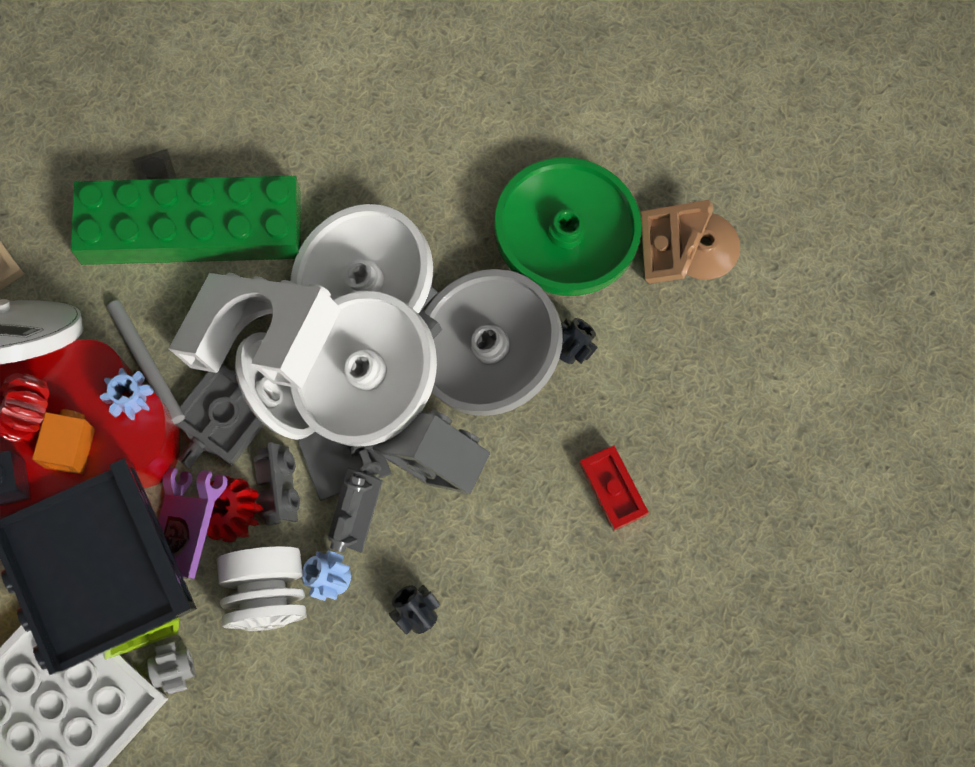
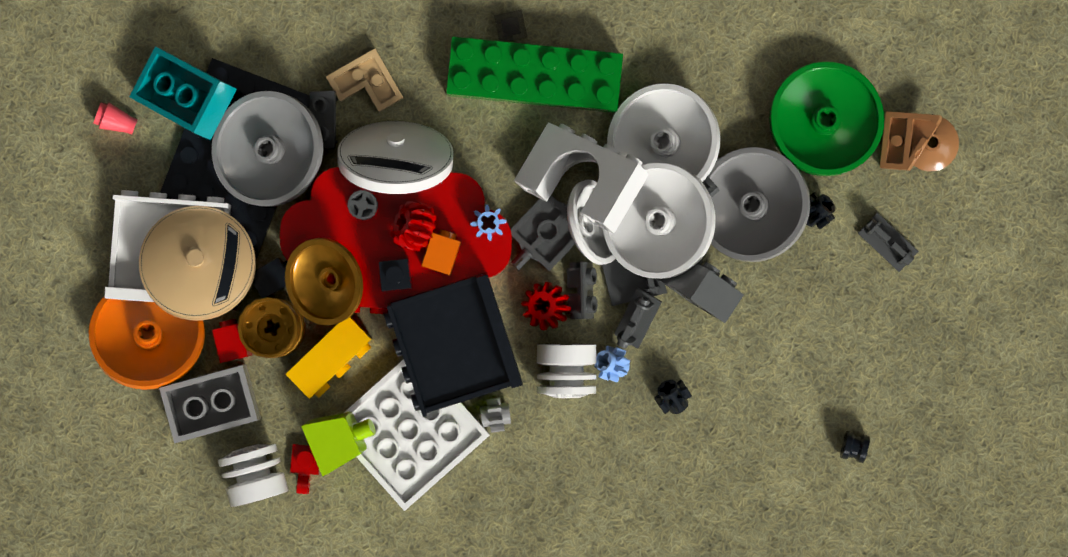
camera: 20 degrees right, 15 degrees up
(144, 359) = (491, 181): light grey bar -> none
(188, 518) = (518, 311): medium lavender flag -> none
(613, 488) = (829, 326): red plate -> none
(671, 372) = (888, 242): none -> dark grey hinge
(674, 645) = (855, 447): none -> black wheel

